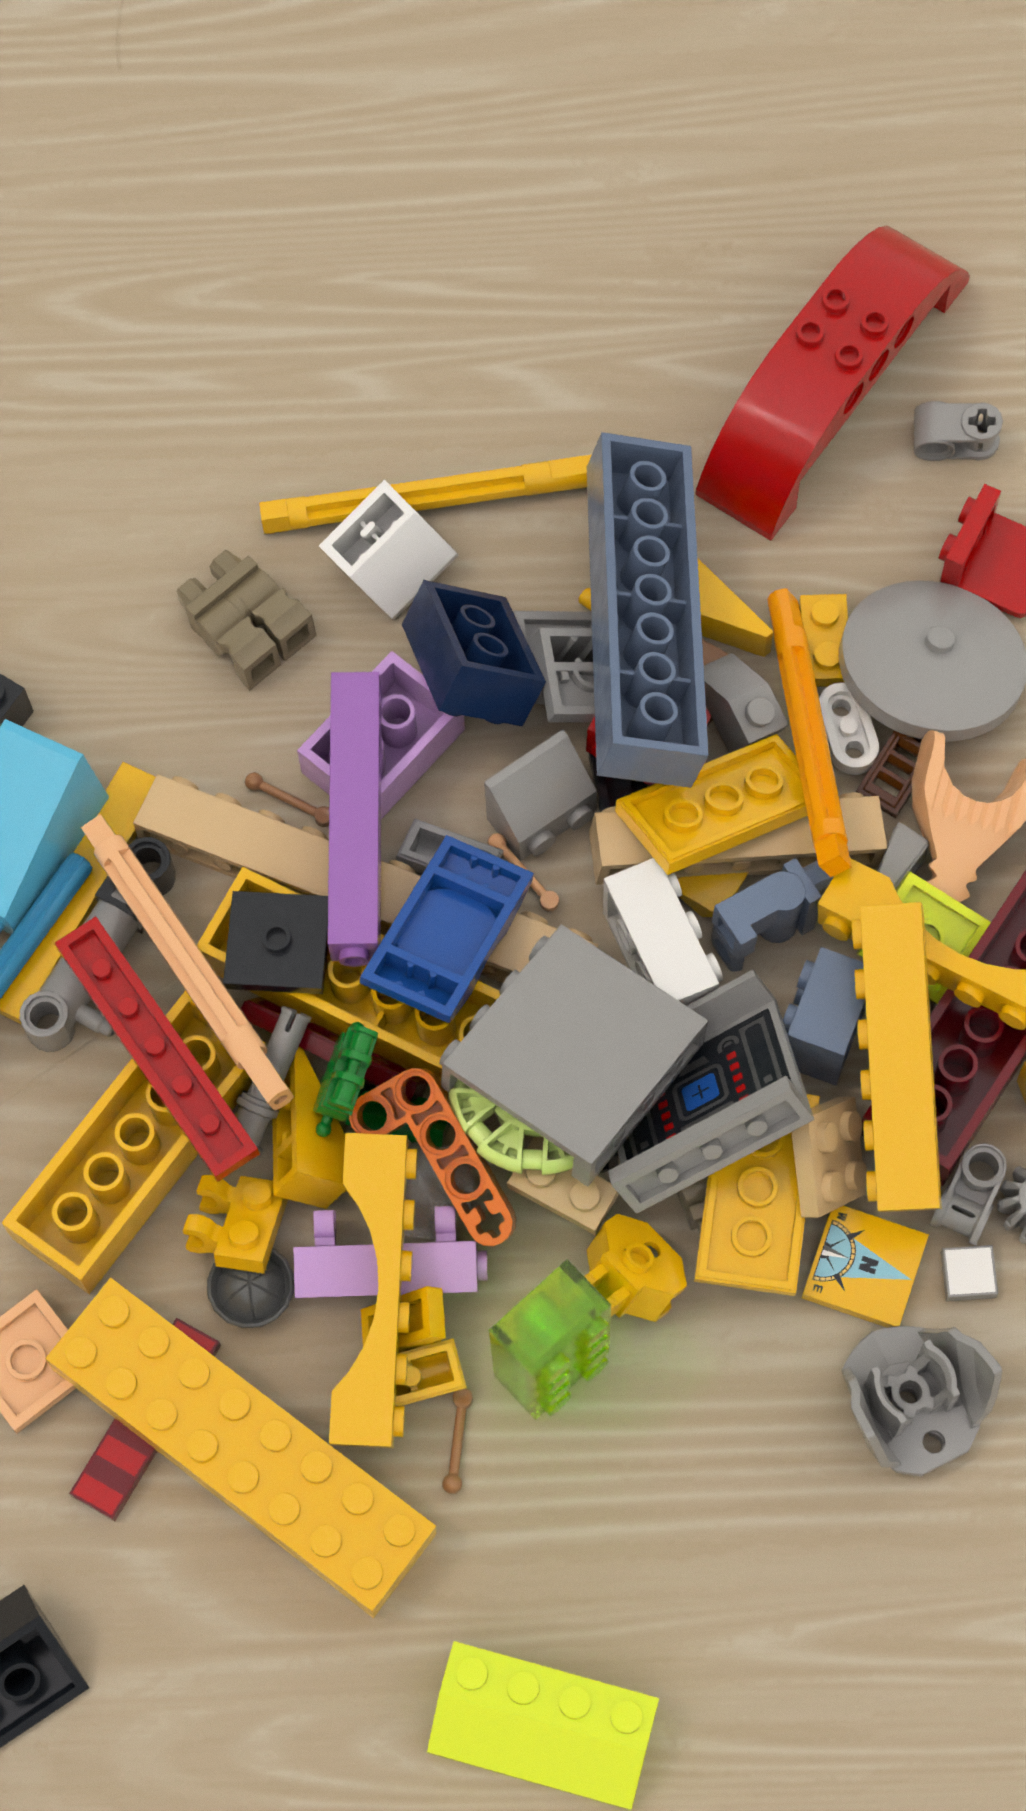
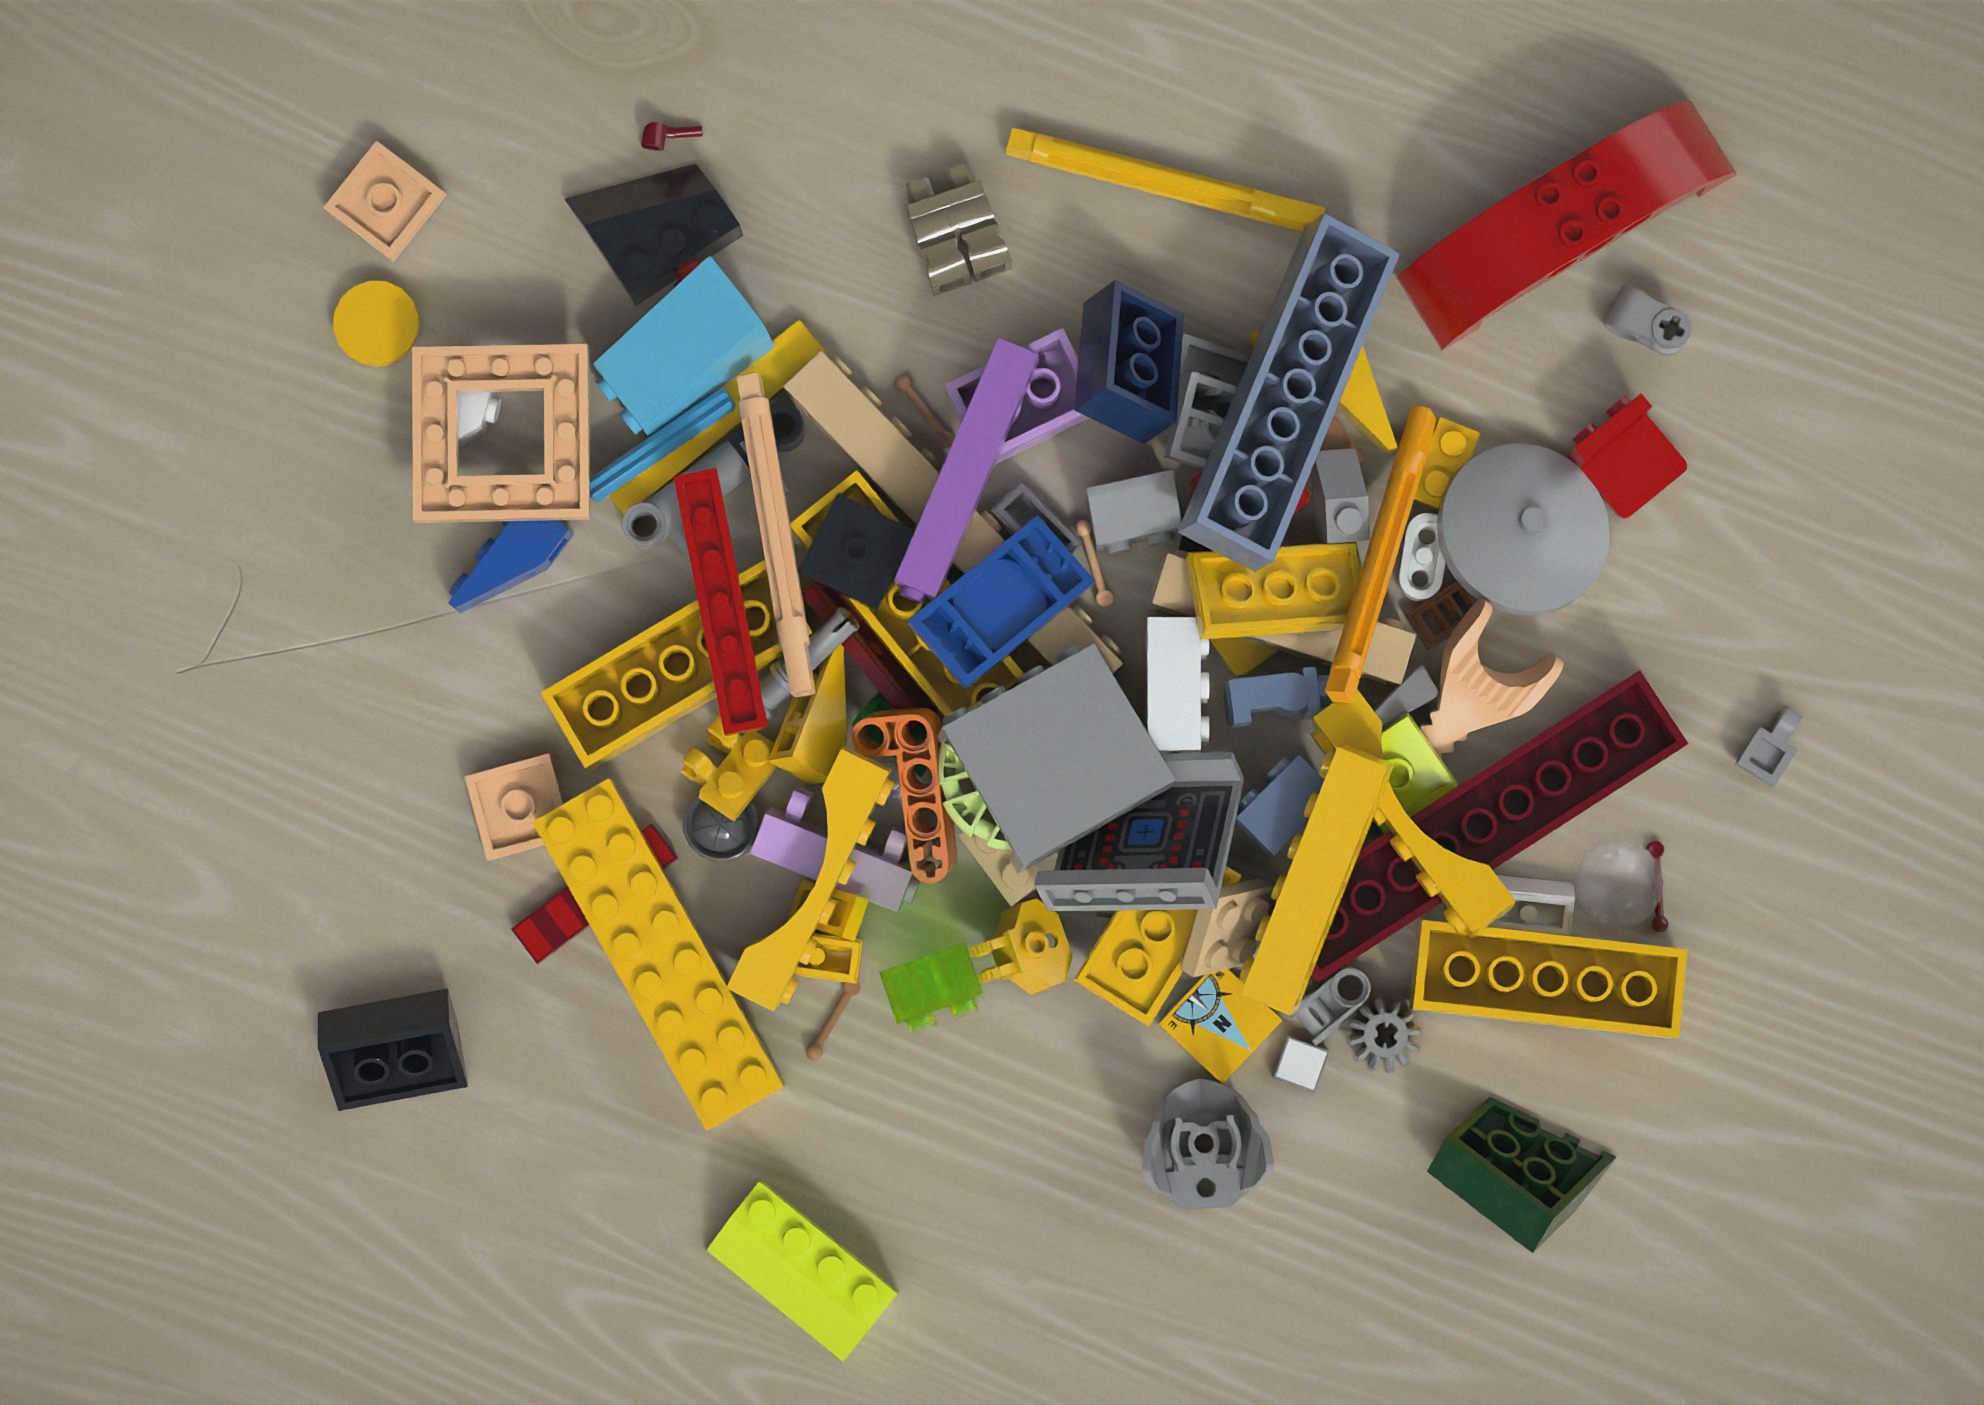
camera: 25 degrees right, 15 degrees up
(344, 1076) = (862, 694): green torso -> none
(388, 549) = (1103, 225): white slope -> none

